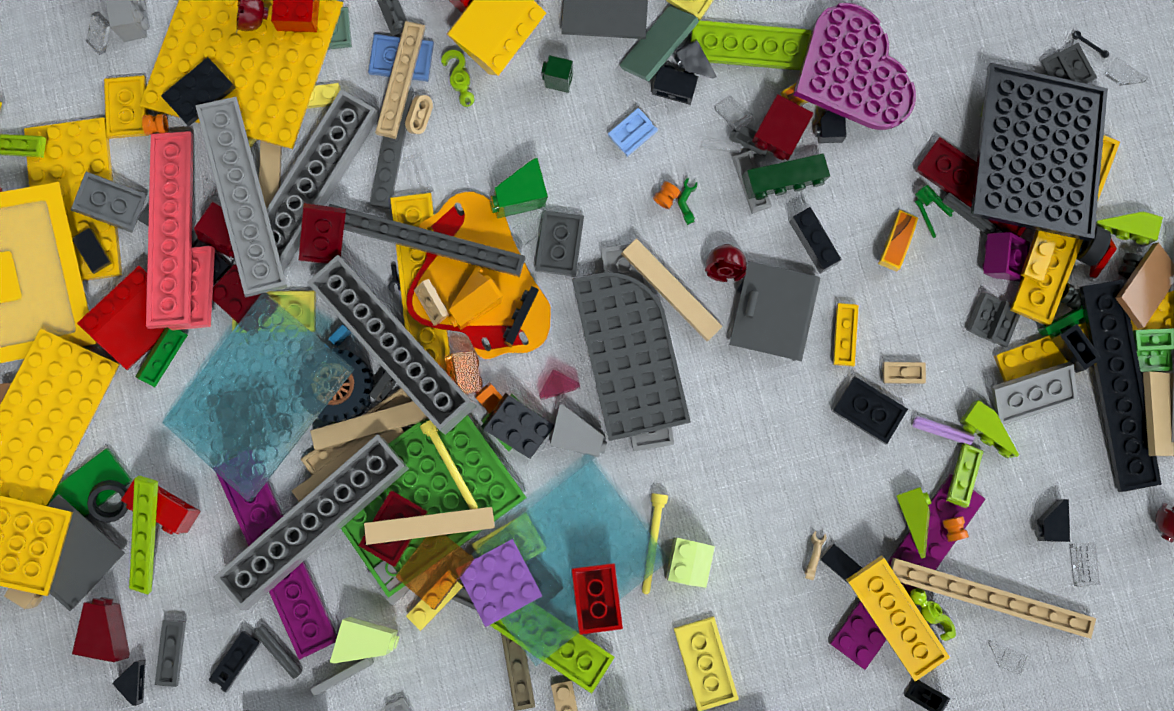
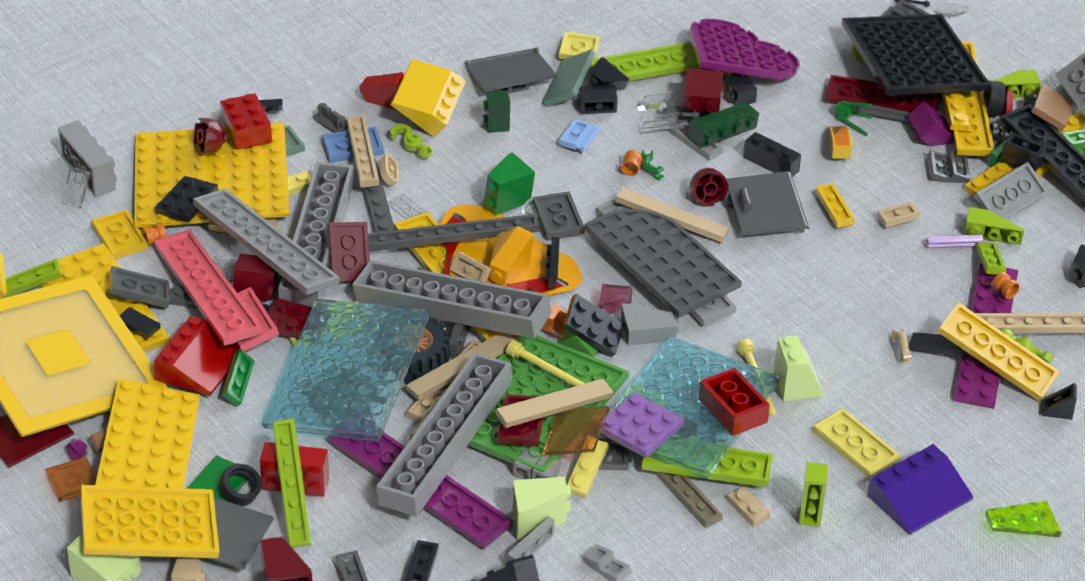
camera: 25 degrees left, 40 degrees down
(278, 651) = (460, 550): dark grey axle -> none
(870, 410) = (886, 243): black plate -> none
(917, 515) = (966, 288): lime slope -> none

